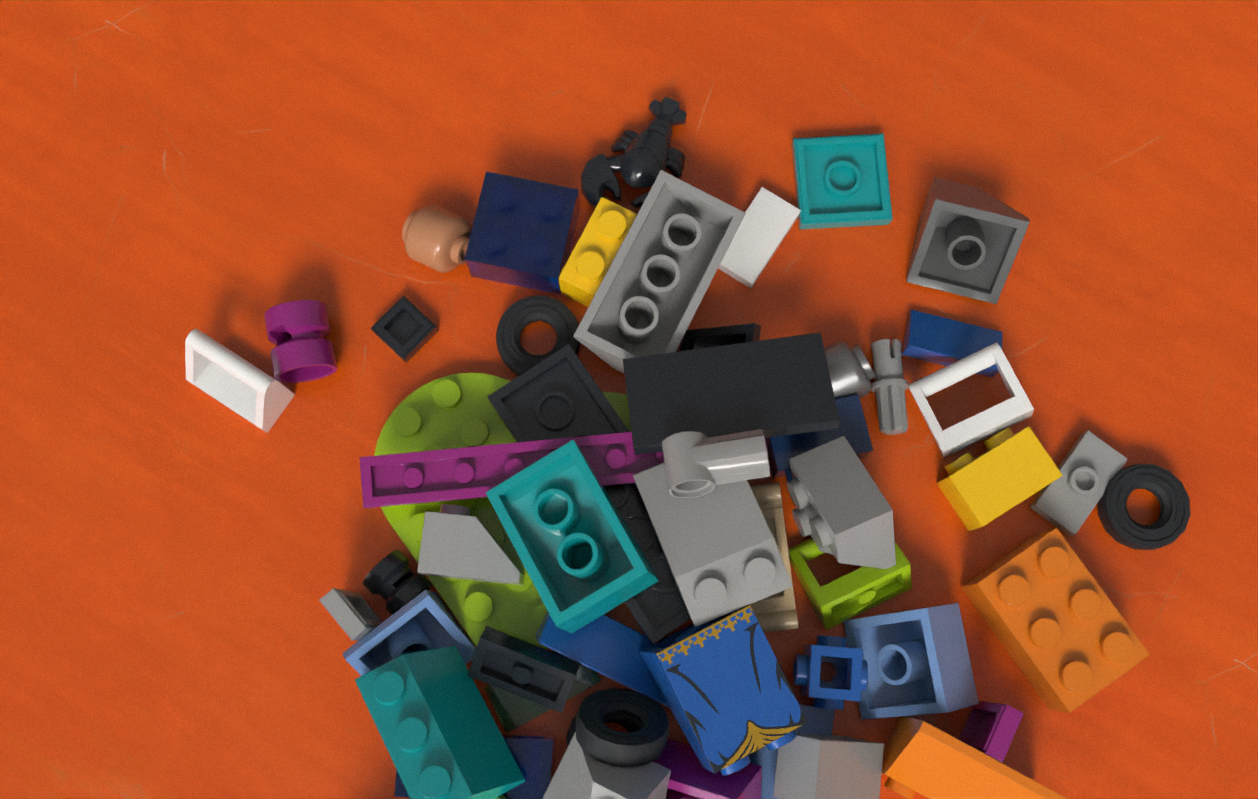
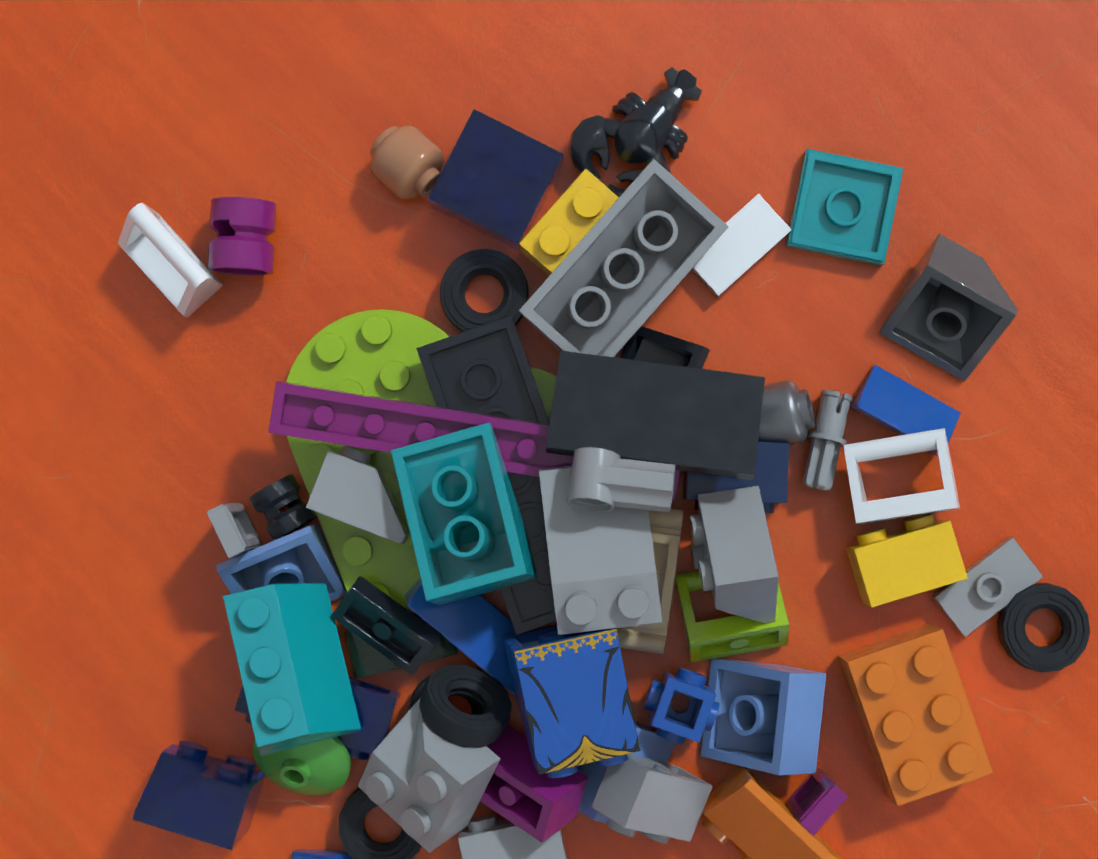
camera: 15 degrees right, 10 degrees up
(404, 329) = (350, 247): black tile -> none

